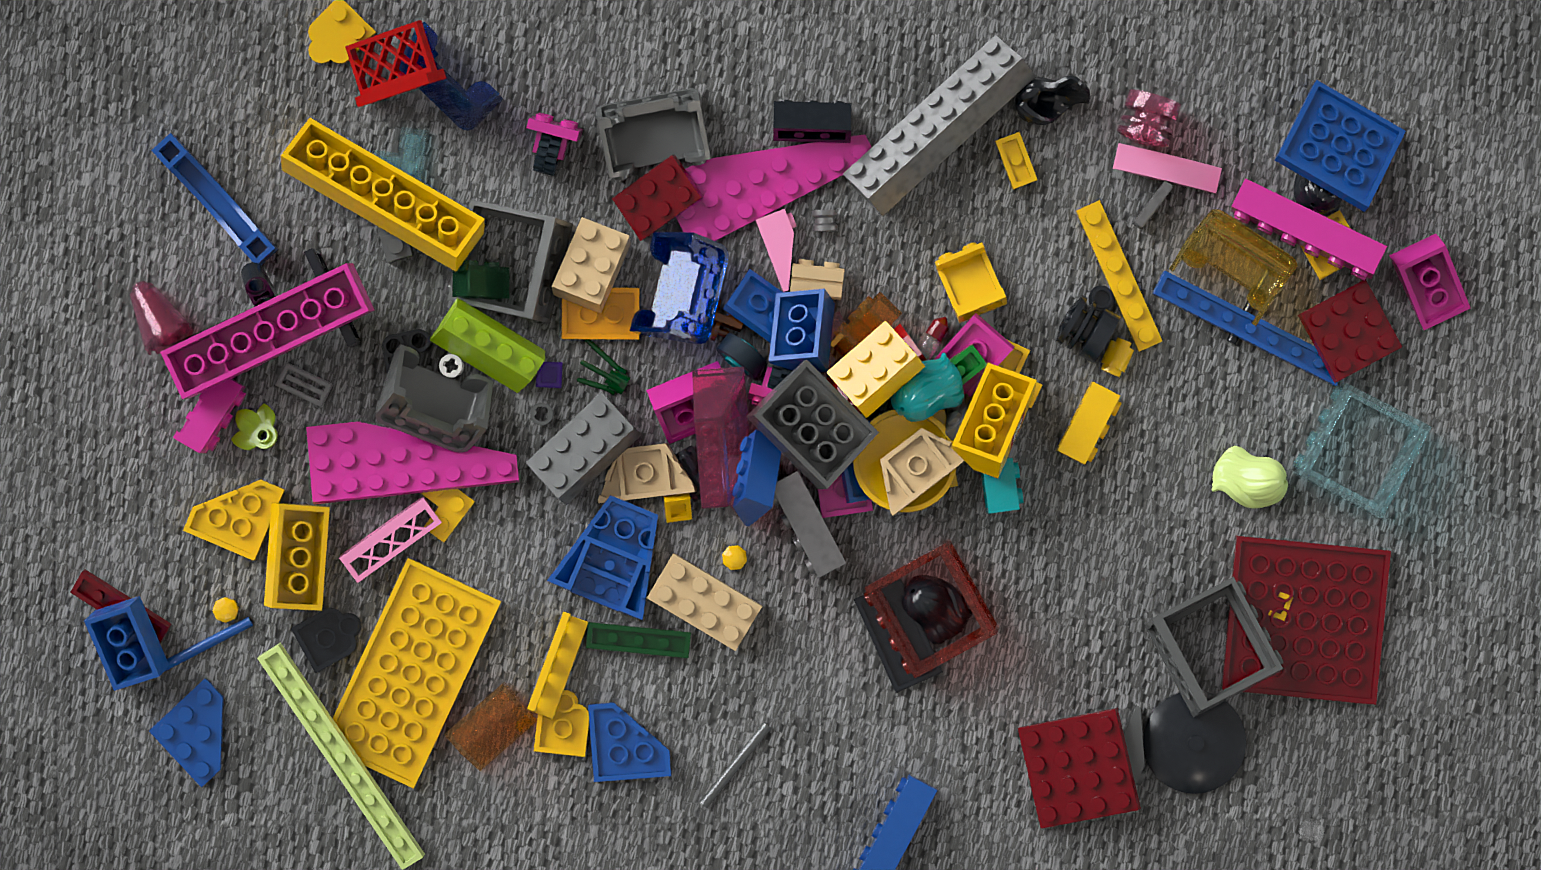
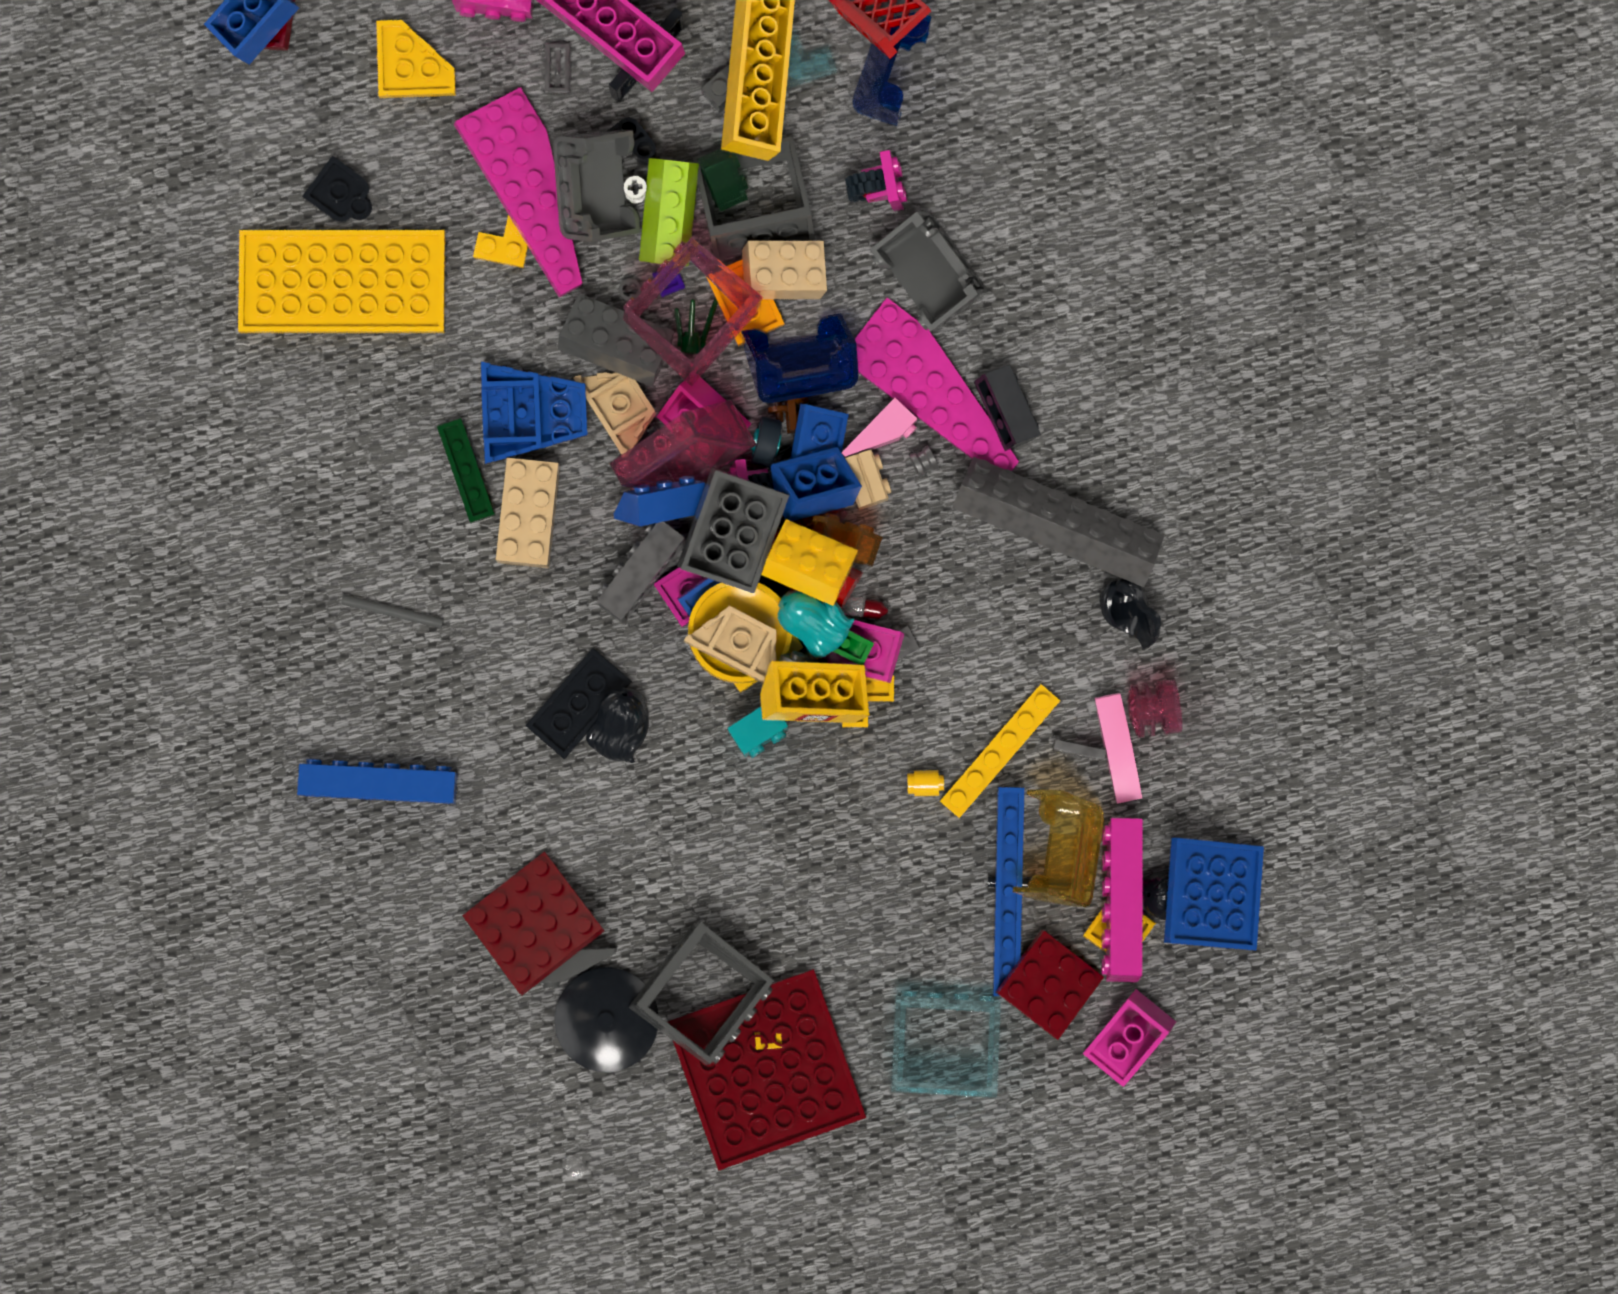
camera: 65 degrees right, 5 degrees down
(195, 732) = (200, 115): blue plate -> none
(209, 642) = (285, 90): blue bar -> none
(225, 609) = (323, 92): yellow tile -> none
(252, 426) = (499, 40): lime plate -> none
(296, 556) = (399, 130): yellow brick -> none
(341, 756) = (237, 252): yellowish green plate -> none
(385, 530) = (455, 196): bright pink fence -> none
(491, 727) = (326, 374): clear orange slope -> none
(557, 665) = (408, 407): yellow fence -> none
(566, 731) = (356, 439): yellow plate -> none
(579, 323) = (731, 285): none -> clear pink windscreen
(623, 746) = (362, 502): blue plate -> none
(657, 197) = (873, 302): dark red plate -> none
(677, 507) = (602, 450): yellow plate -> none
(734, 557) = (580, 522): yellow tile -> none
(899, 639) = (650, 743): clear red windscreen -> none
(970, 281) = (930, 617): yellow panel -> none
(1016, 160) = (1060, 608): yellow plate -> none
(1087, 328) = (938, 742): black wheel -> none
(1089, 423) = (852, 786): yellow brick -> none
(1102, 296) = (972, 744): black plate -> none
(1249, 479) = (871, 956): yellowish green piece -> none

